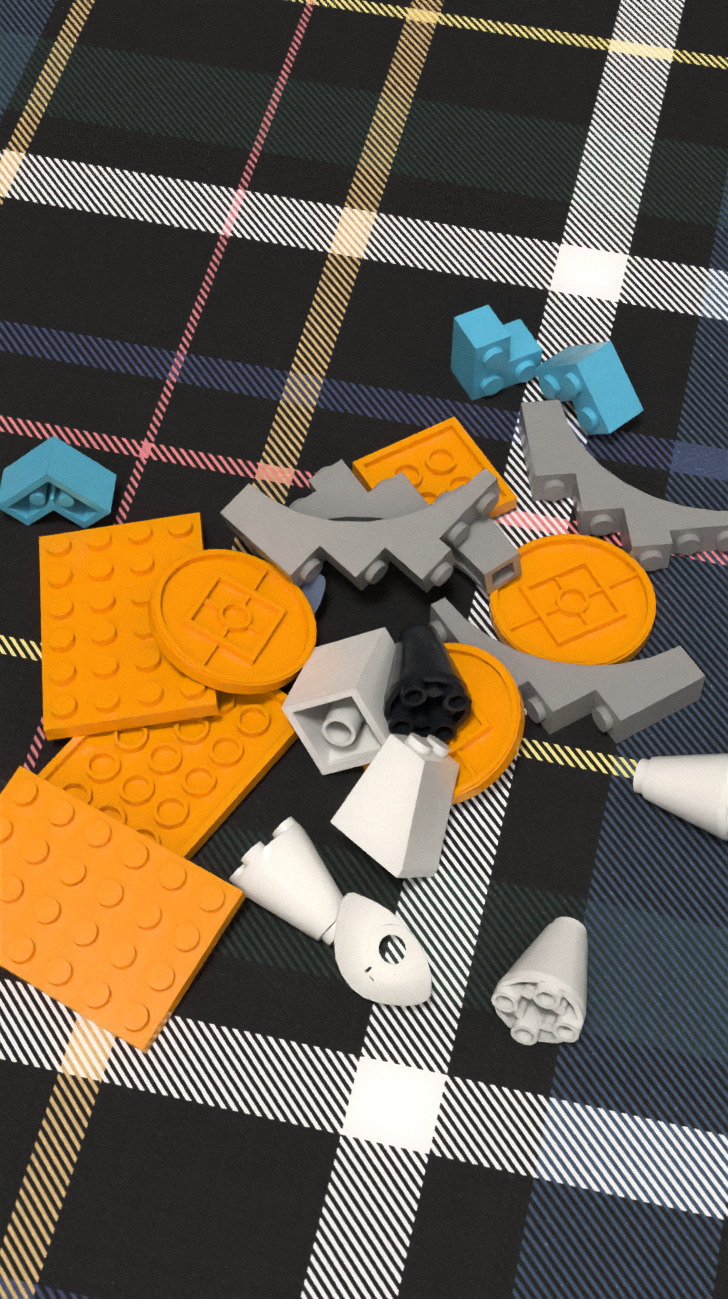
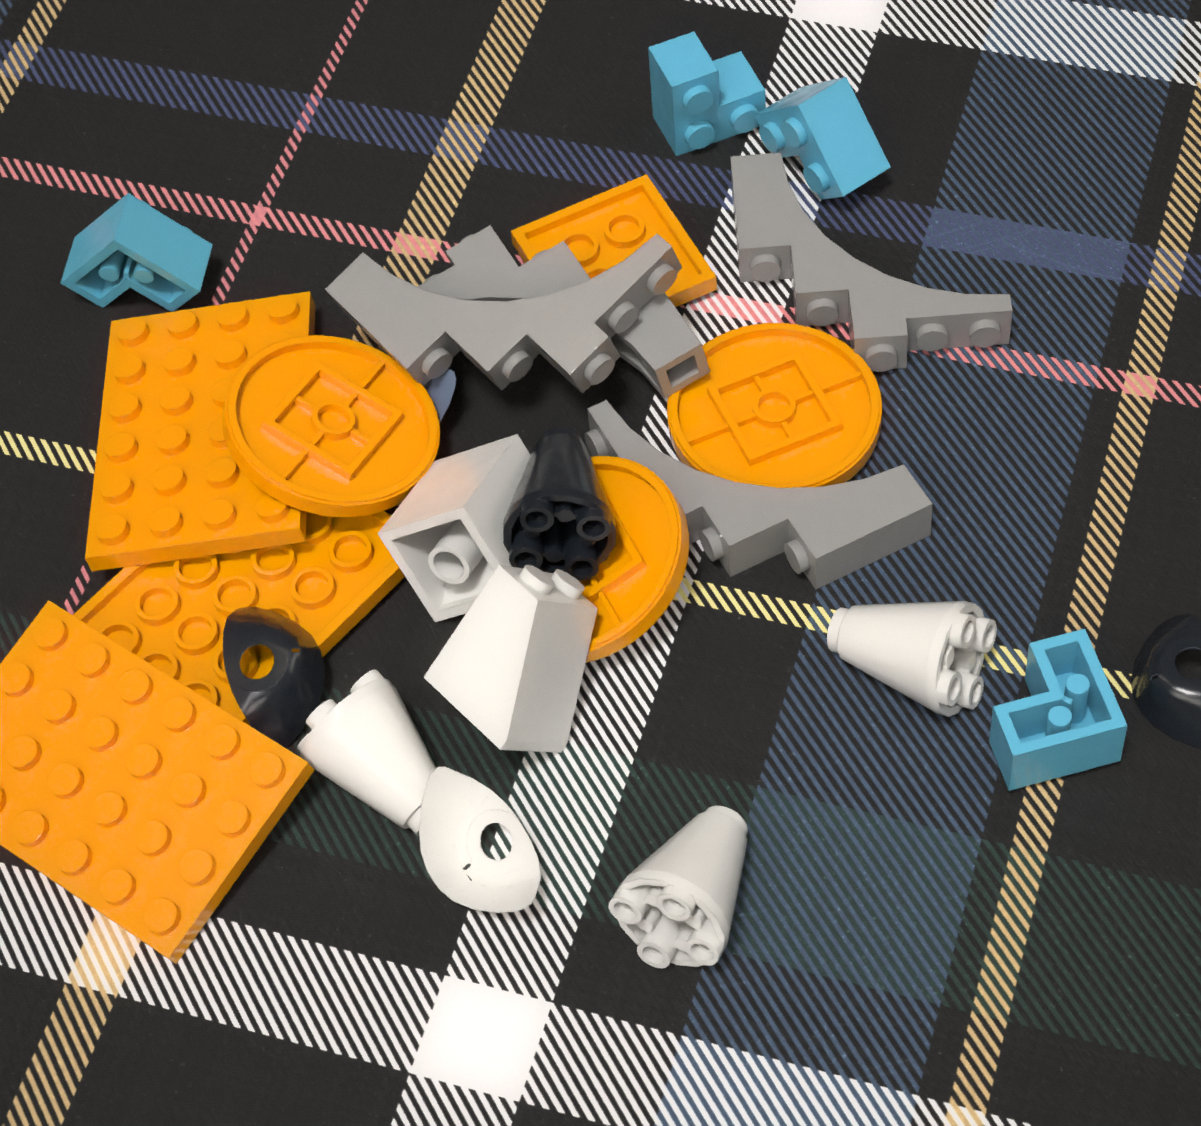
camera: 10 degrees right, 0 degrees up
(218, 836) = (291, 690): none -> black piece

